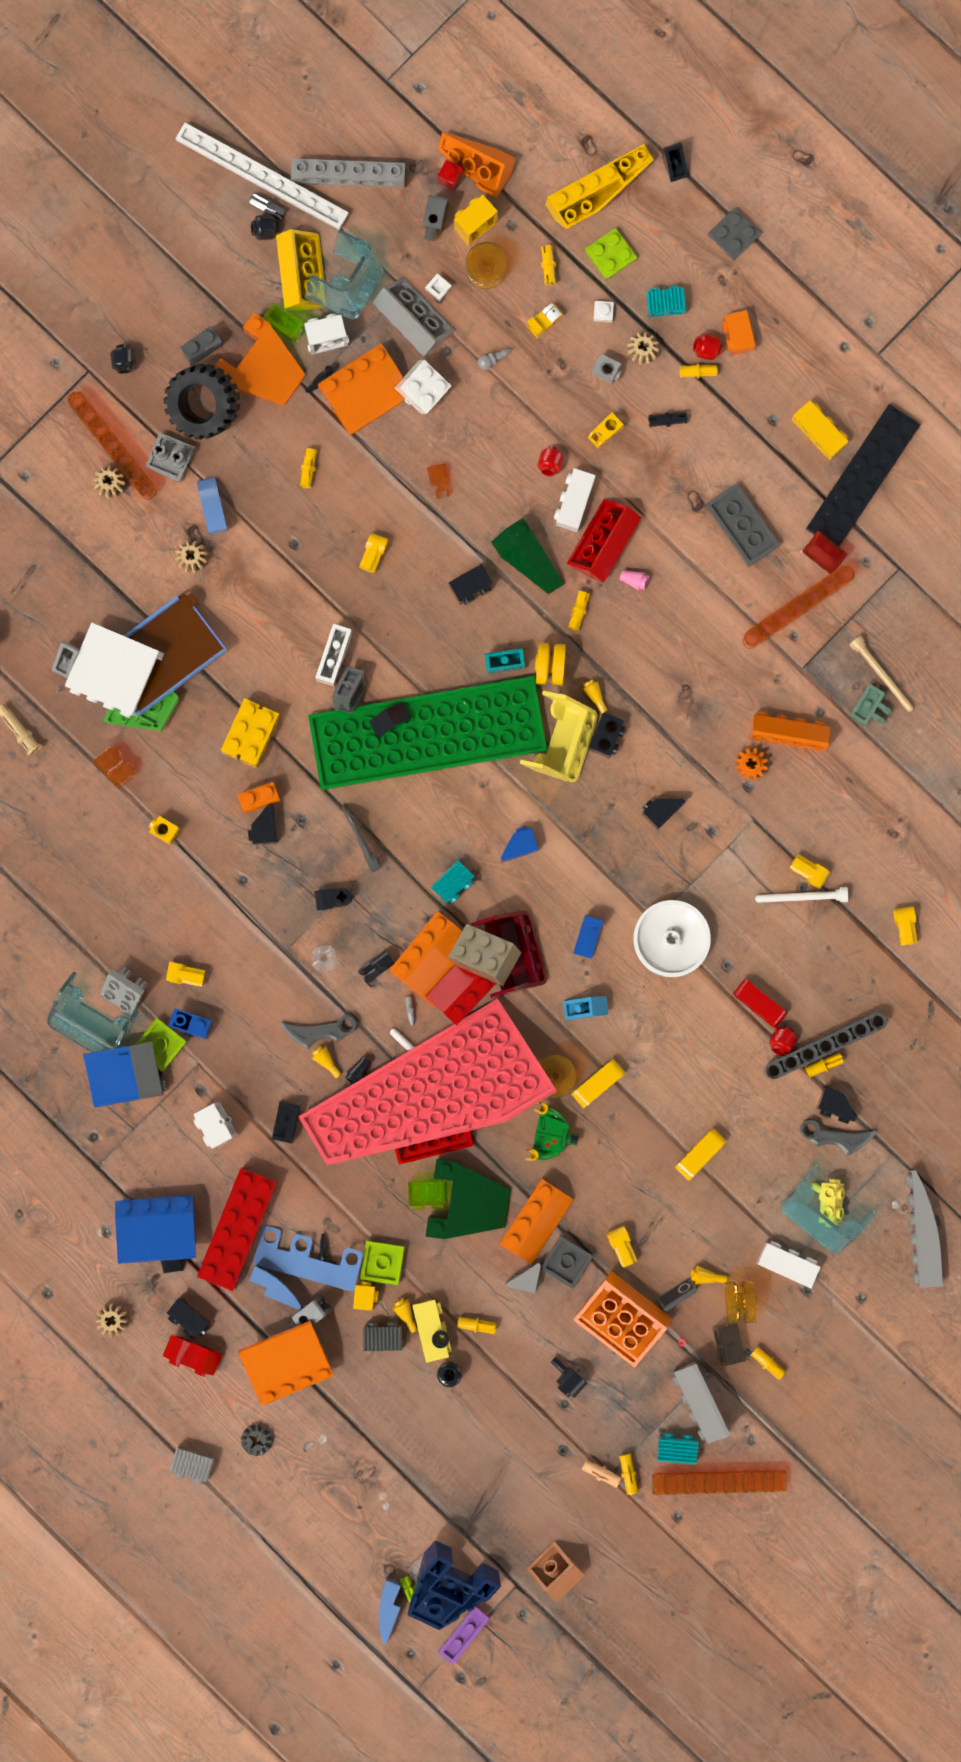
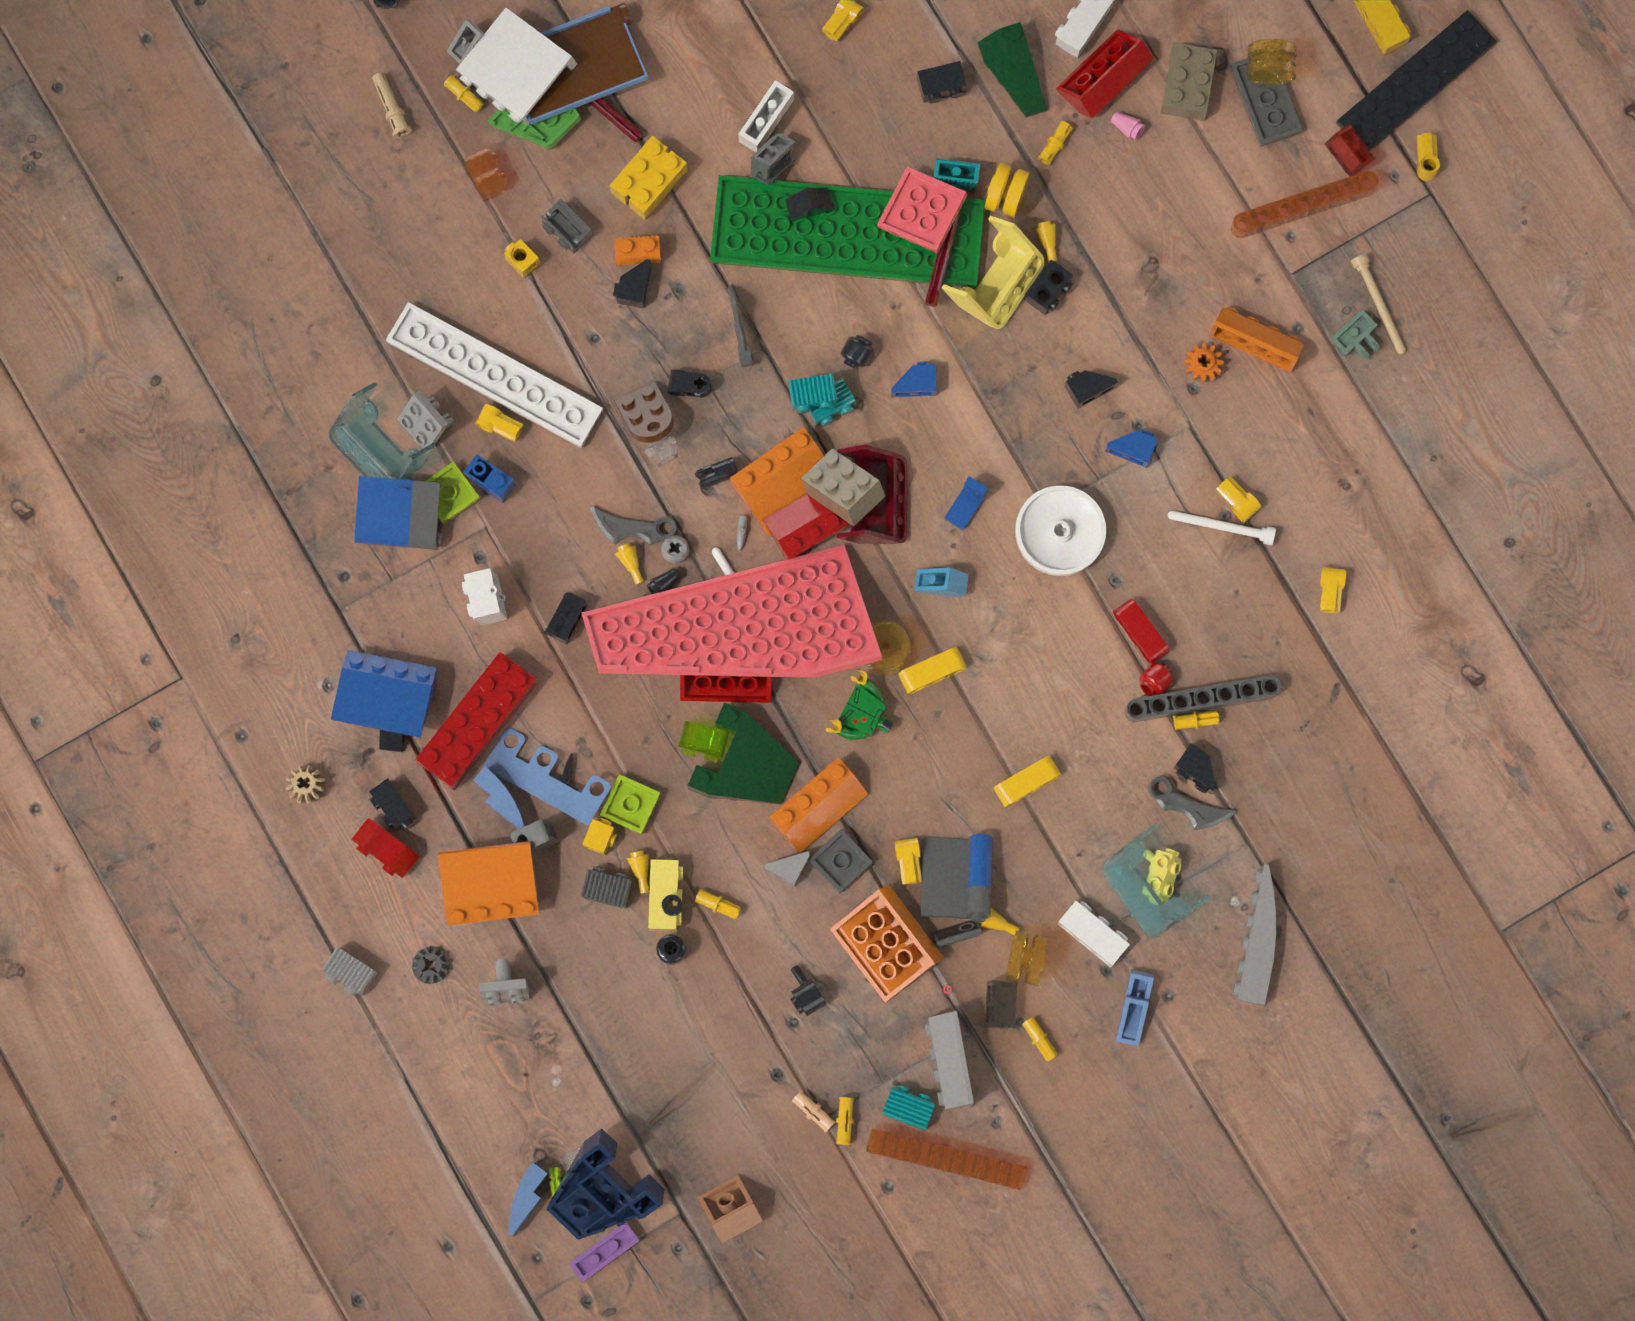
camera: 15 degrees right, 5 degrees down
(76, 703) = (463, 93): none -> yellow axle
(169, 935) = (494, 375): none -> white plate
(194, 793) = (566, 226): none -> dark grey hinge
(211, 690) = (617, 119): none -> dark red axle
(303, 932) = (644, 411): none -> plate
(322, 1443) = (504, 988): none -> light grey plate
(358, 1033) = (676, 541): none -> light grey piece
(437, 881) = (812, 393): none -> teal brick
(463, 833) = (857, 351): none -> black head
(485, 700) = (922, 209): none -> coral plate
(512, 731) = (940, 266): none -> dark red axle
(665, 1250) = (957, 877): none -> dark grey door
(675, 528) = (1188, 81): none -> dark tan brick
(713, 851) = (1134, 447): none -> blue slope
(740, 496) = (1271, 61): none -> clear yellow wheel
(838, 1315) = (1134, 1007): none -> medium blue slope
(888, 537) = (1427, 155): none -> yellow piece

